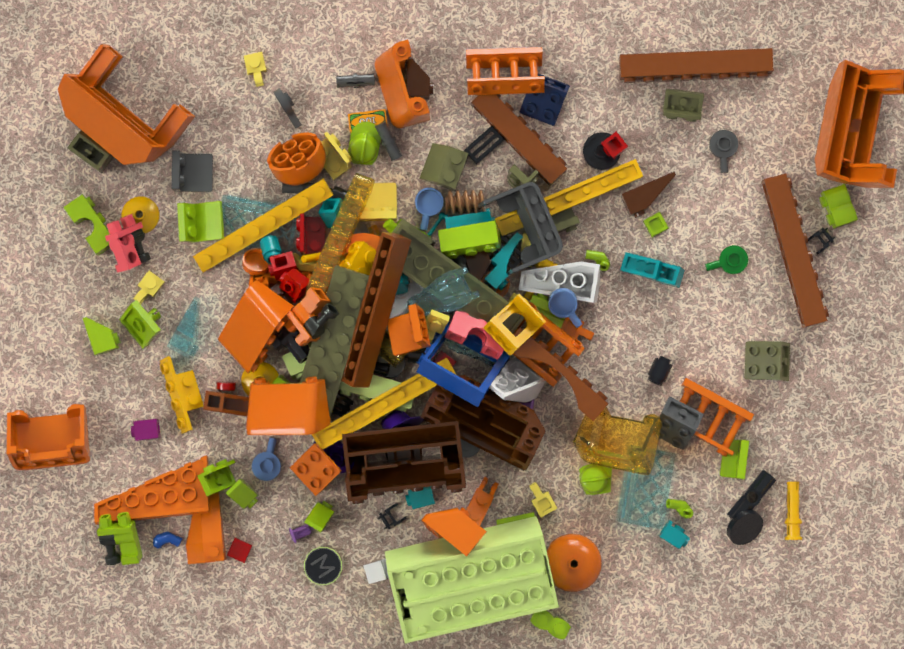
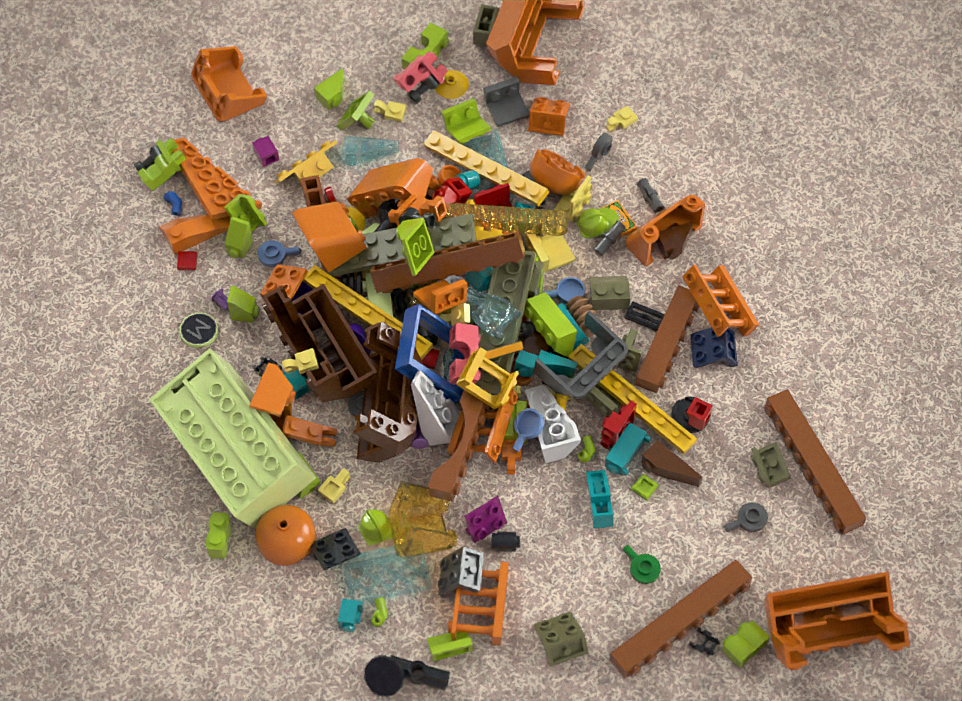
camera: 70 degrees right, 25 degrees down
(222, 136) = (548, 116): none -> orange bracket
(357, 336) = (415, 243): none -> lime slope
(417, 483) = (304, 361): none -> light yellow plate
(488, 296) = (506, 349): none -> light orange tile
(596, 227) = (616, 424): none -> red plate
(609, 525) = (334, 549): none -> black hinge
(615, 226) = (625, 449): none -> teal brick
(634, 372) = (485, 519): none -> magenta hinge

